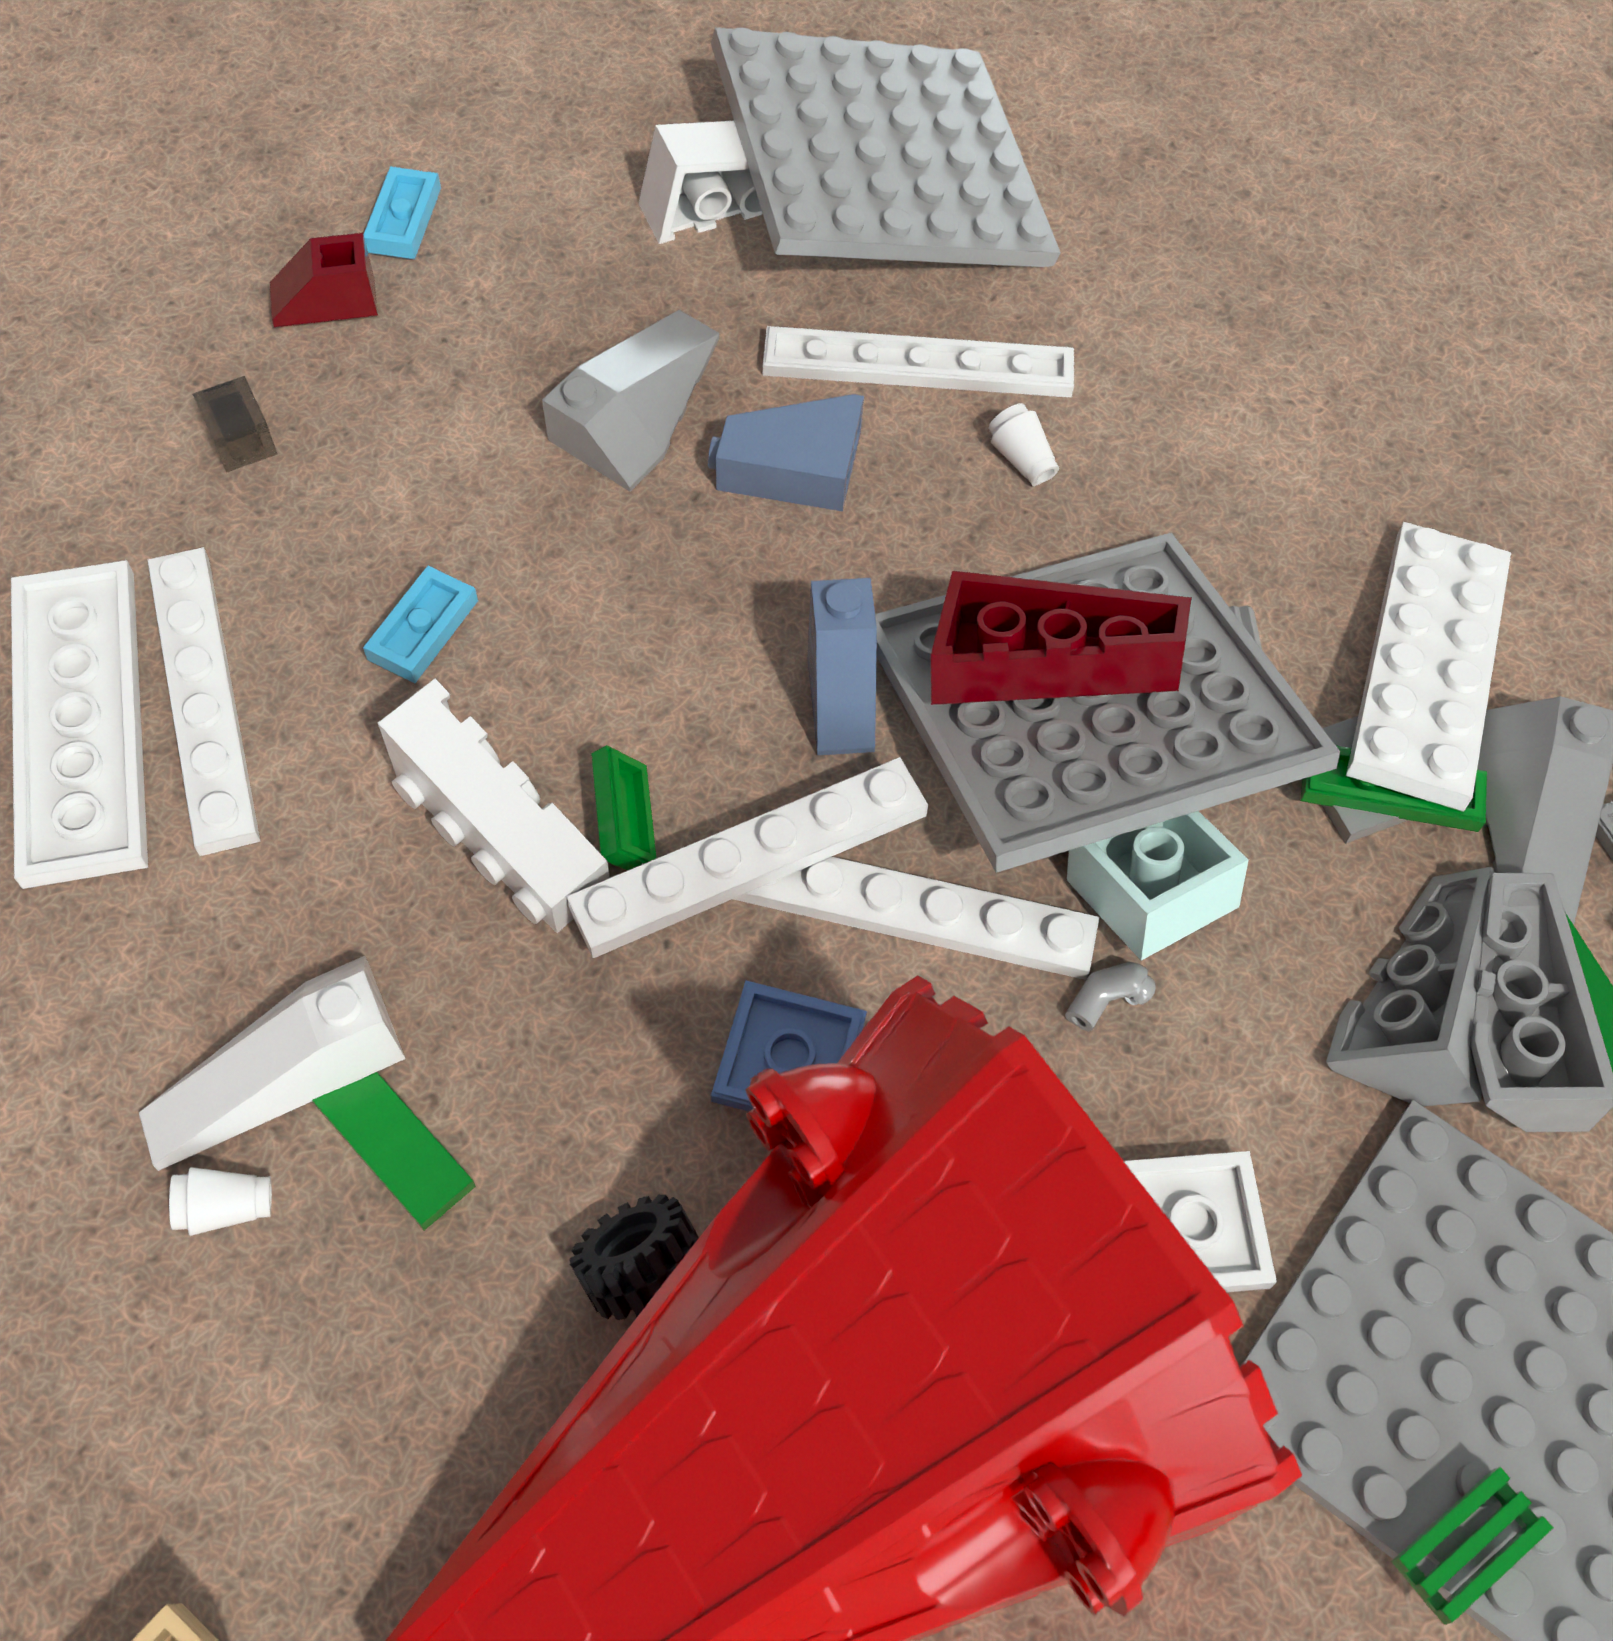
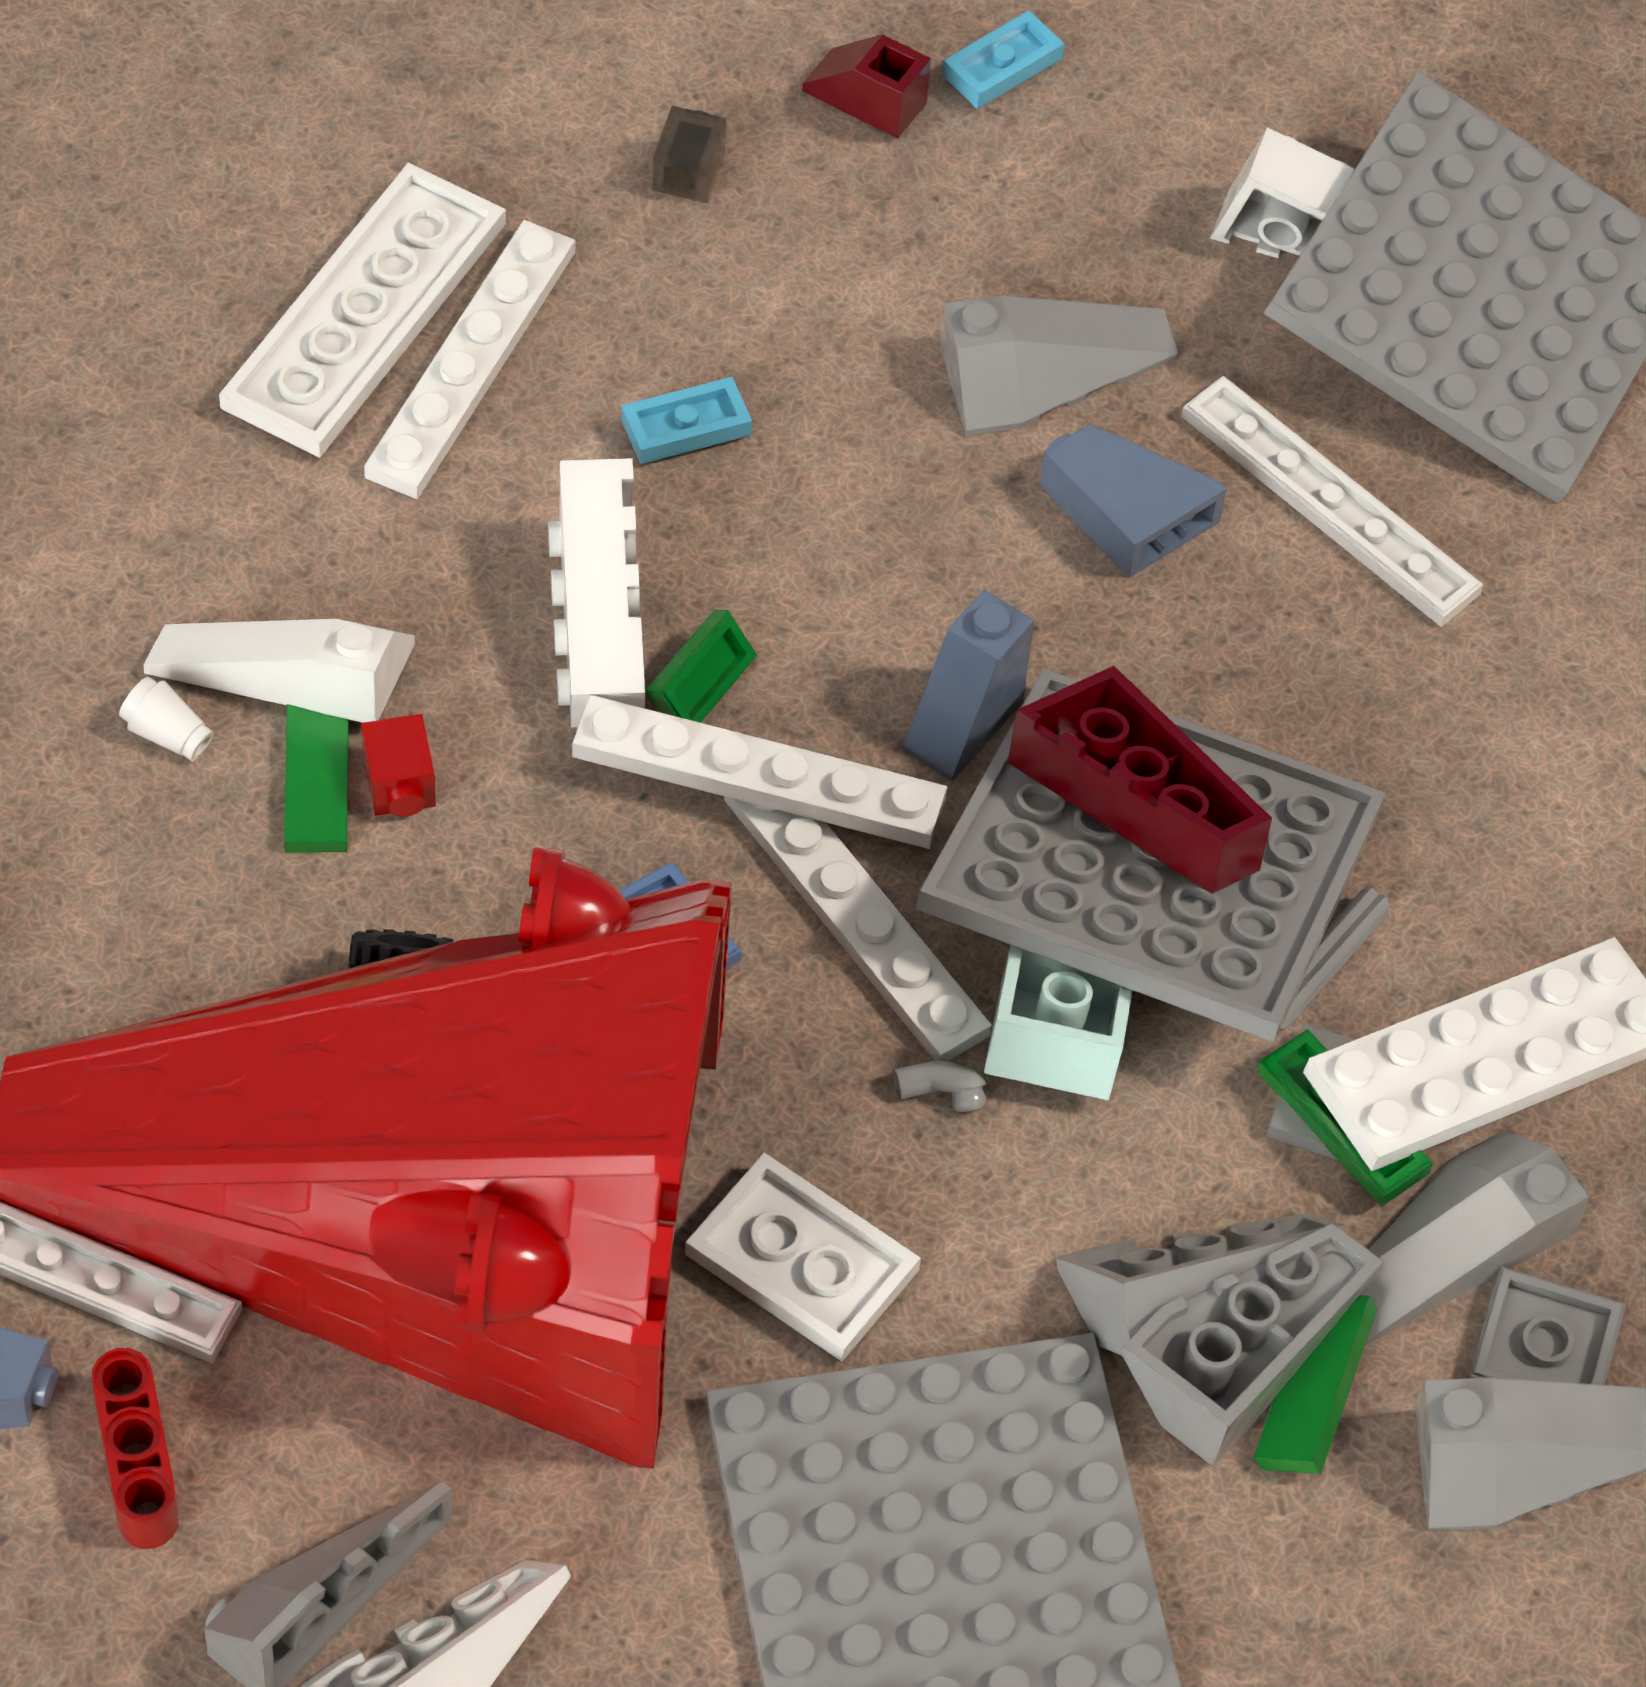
camera: 40 degrees right, 5 degrees down
(458, 1079) = (398, 765): none -> red brick
(1023, 443) = (1341, 630): white cone -> none
(1514, 1507) = (791, 1595): green tile -> none

